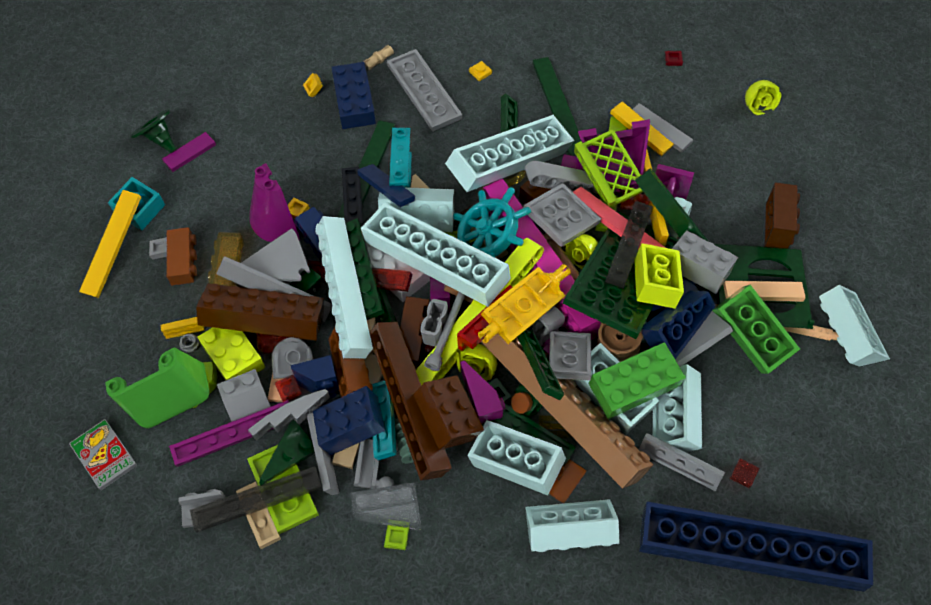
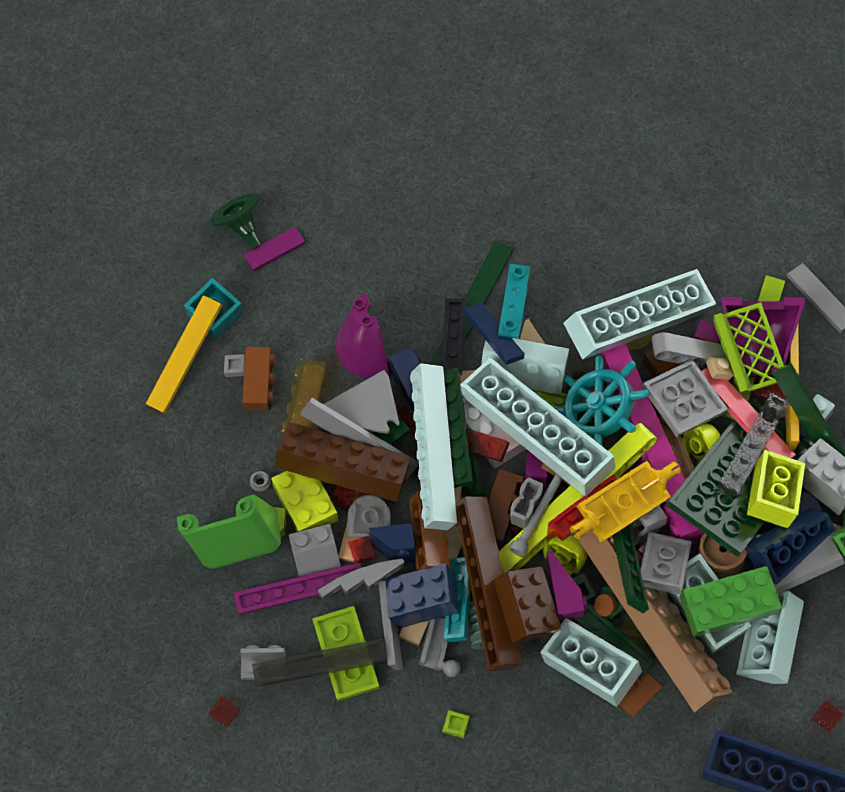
camera: 10 degrees right, 5 degrees up
(103, 454) = (164, 589): tile -> none
(167, 562) = (224, 712): none -> clear red plate
(181, 328) = (253, 463): yellow tile -> none
(261, 524) = (321, 687): tan plate -> none
(291, 450) = (359, 617): dark green wing -> none
(297, 207) = (391, 340): yellow plate -> none
(313, 85) = (423, 183): yellow plate -> none
(353, 95) = (469, 204): dark blue brick -> none
(378, 57) = (503, 156): tan pin -> none
(388, 506) = (452, 691): clear wedge -> none
(424, 90) = (552, 208): light grey plate -> none
(480, 71) = (622, 191): yellow plate -> none
(509, 113) = (646, 260): dark green plate -> none
(556, 99) = (706, 245): dark green tile -> none
(572, 525) = (637, 740): light aqua slope -> none
(587, 188) = (719, 368): none -> tan plate
(656, 140) = (792, 287): yellow tile -> none
(675, 180) = (819, 374): magenta tile -> none
(681, 462) = (762, 693): light grey tile -> none

